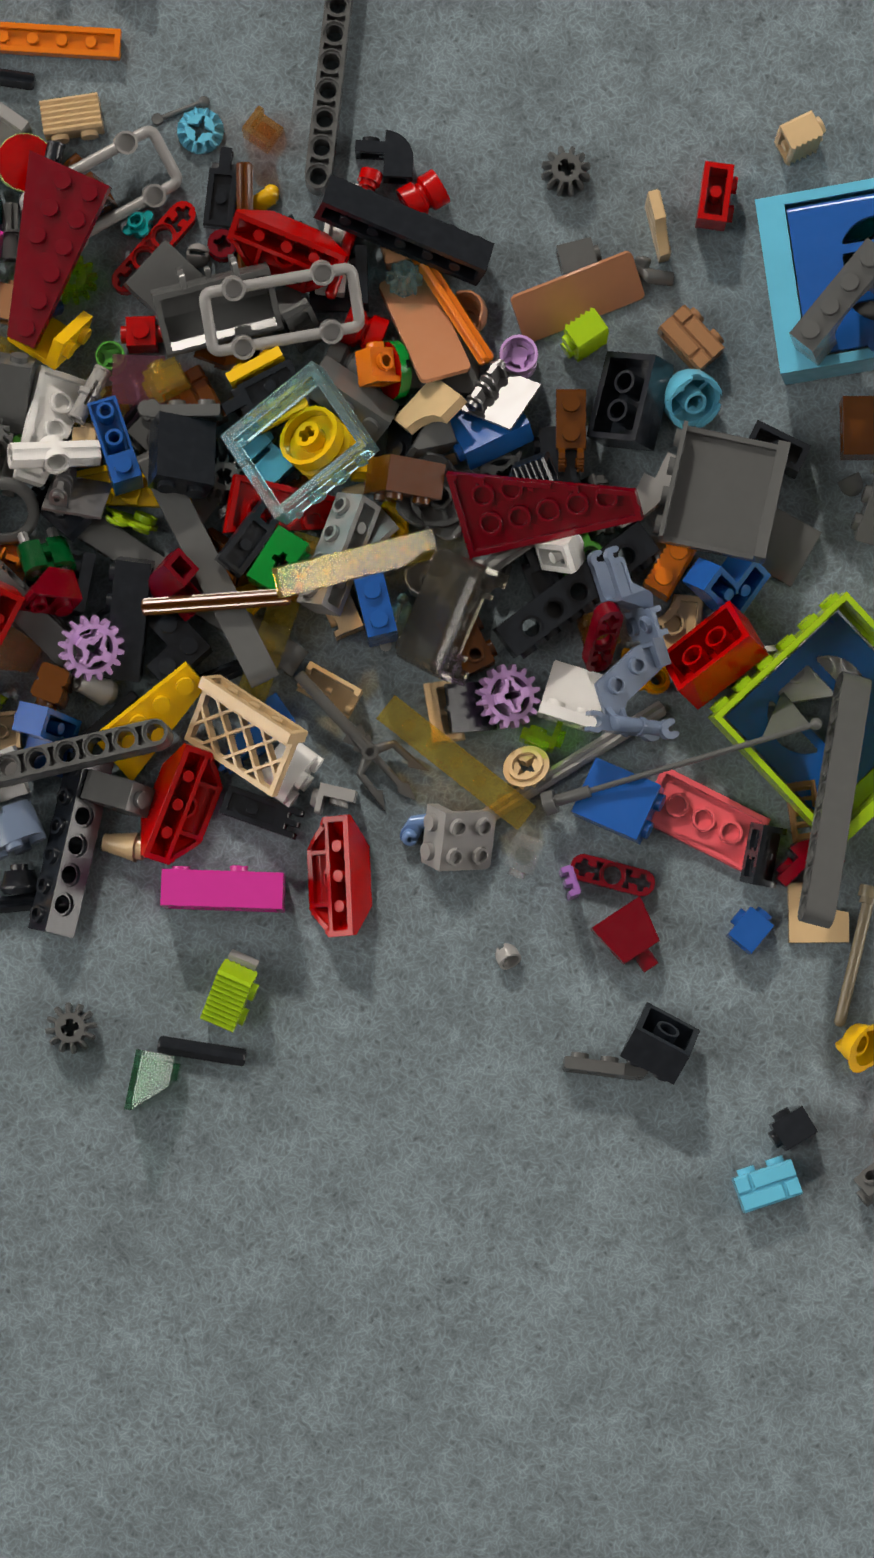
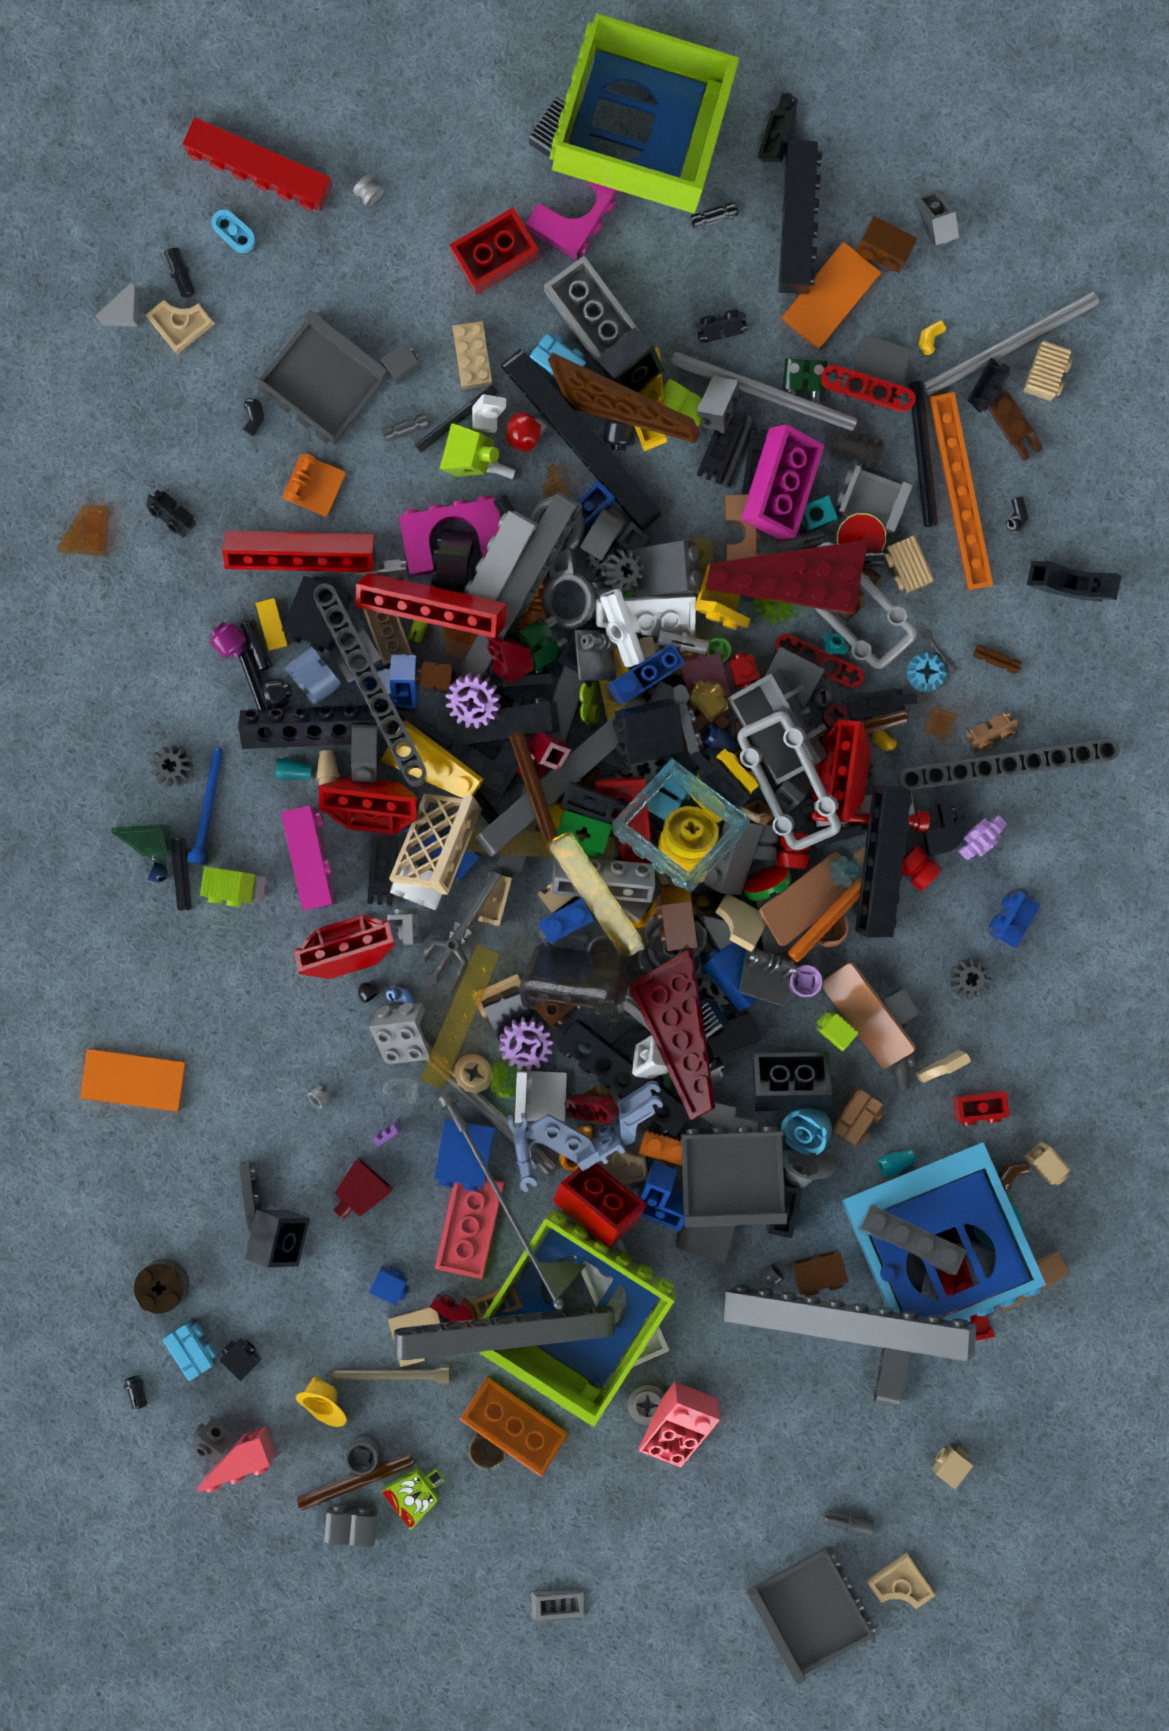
camera: 75 degrees right, 5 degrees up
(100, 691) = (442, 717): light grey cone -> none
(113, 889) = (291, 769): none -> teal cone
(182, 1023) = (198, 854): none -> blue piece
(193, 1078) = (158, 873): none -> dark blue hinge
(207, 46) = (997, 659): none -> reddish brown axle
(213, 380) = (717, 739): none -> dark blue cone
(287, 61) = (1002, 728): none -> medium nougat hinge
(312, 351) = (758, 812): none -> medium nougat slope
(376, 365) = (765, 868): orange brick -> none
(398, 867) = (367, 991): none -> black hinge
(406, 113) = (982, 837): none -> lavender gear
(430, 1172) = (133, 1080): none -> orange tile
(509, 104) = (1014, 918): none -> blue bracket
(571, 426) = (757, 1038): reddish brown hinge -> none
(632, 888) = (398, 1182): dark red beam -> none
(692, 1213) = (150, 1296): none -> dark brown brick
(736, 413) = (803, 1169): none -> light grey piece
(756, 313) = (894, 1163): none -> teal cone
(761, 854) = (450, 1279): black hinge -> none
(798, 178) = (1009, 1173): none -> reddish brown arm
(801, 1263) = (135, 1392): none -> black pin

